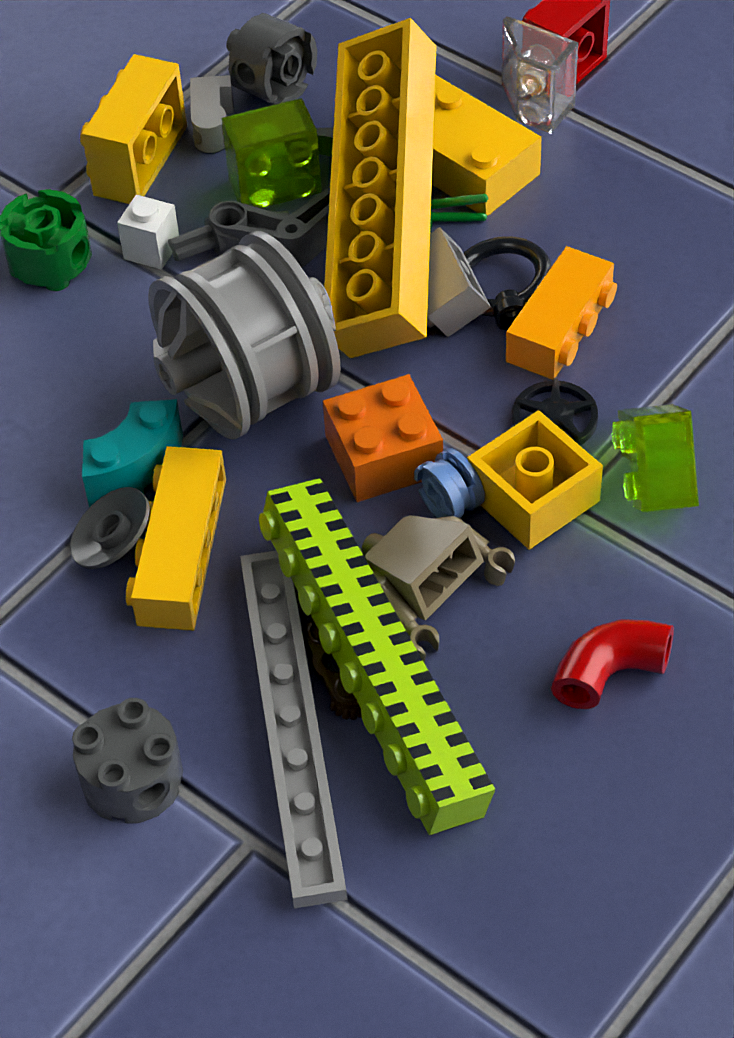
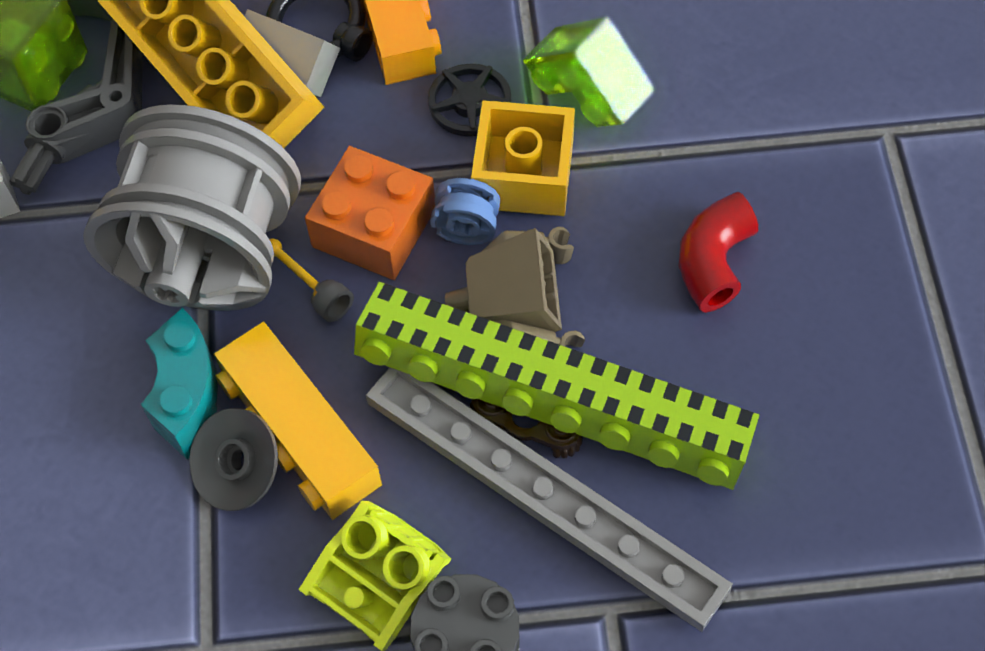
camera: 45 degrees left, 10 degrees up
(121, 664) = (375, 572): none -> neon yellow slope
(292, 469) = (329, 297): none -> dark grey hinge

